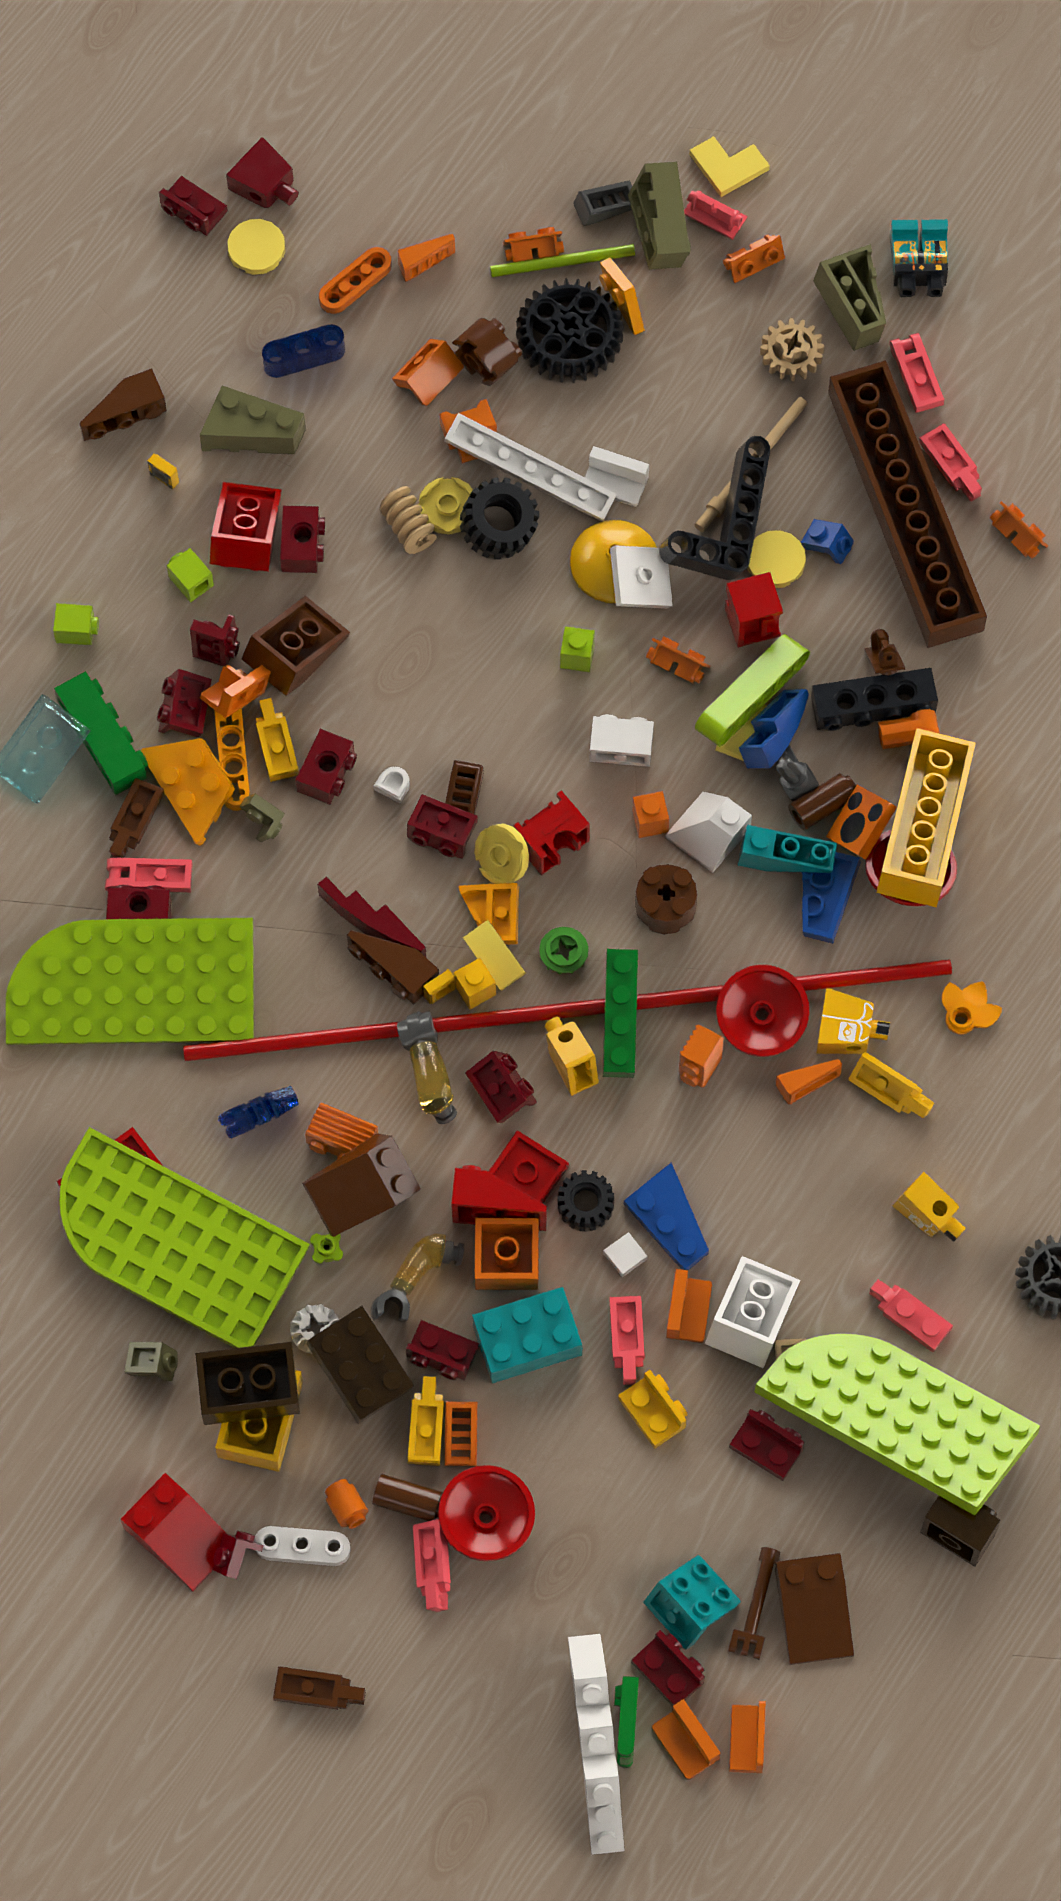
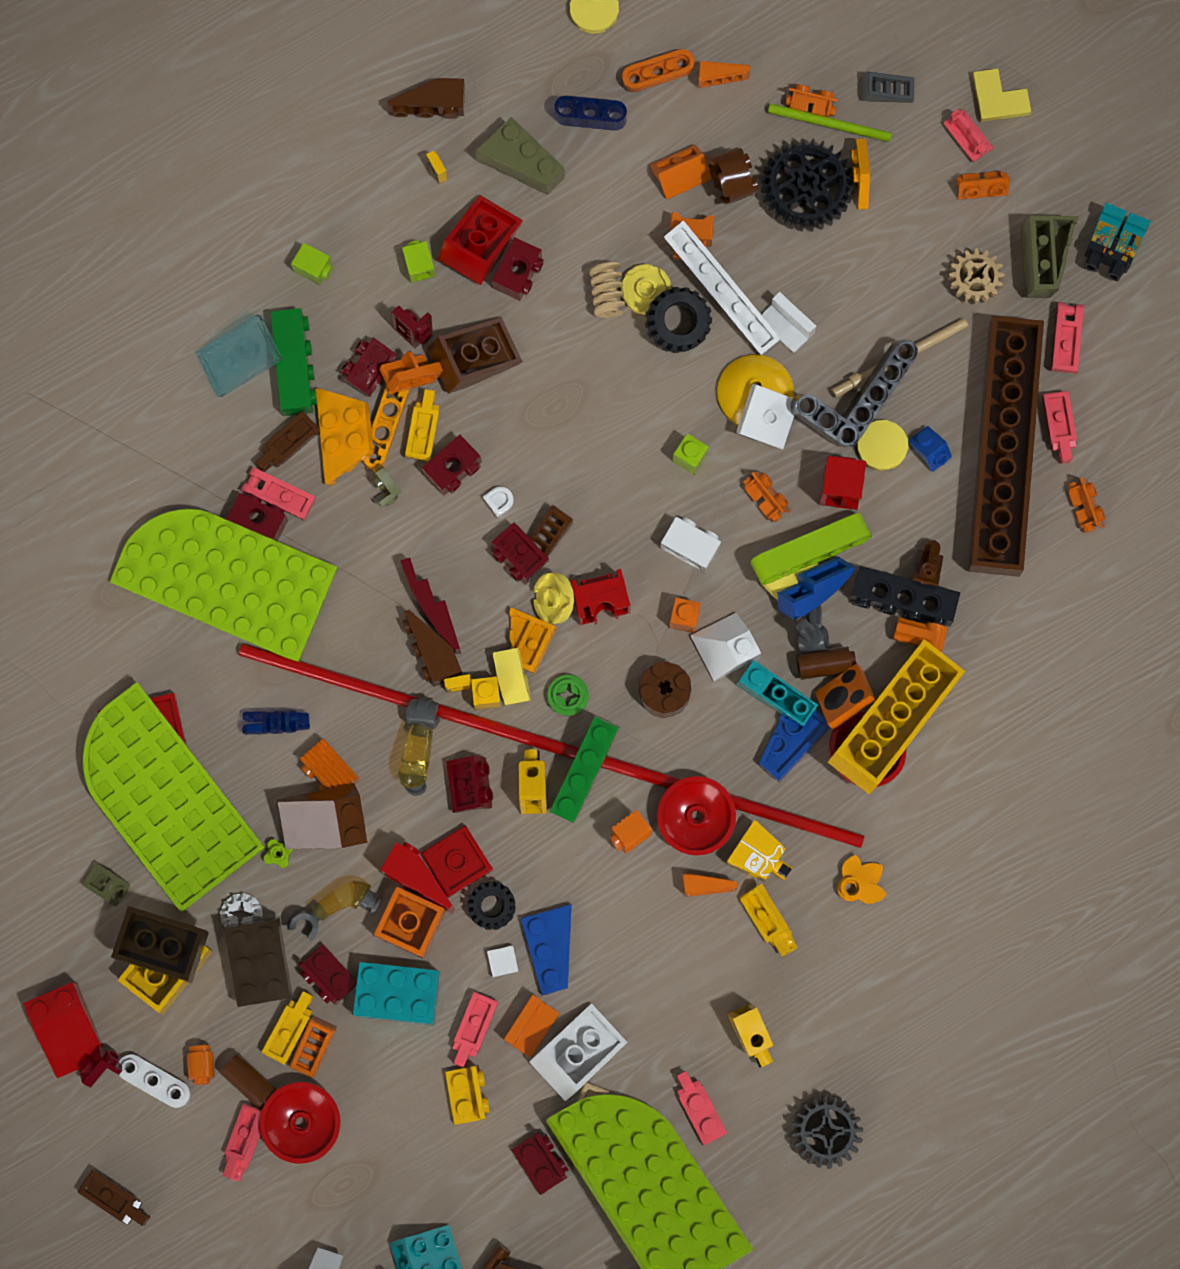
camera: 25 degrees right, 10 degrees up
(660, 215) = (922, 120): olive wedge -> none

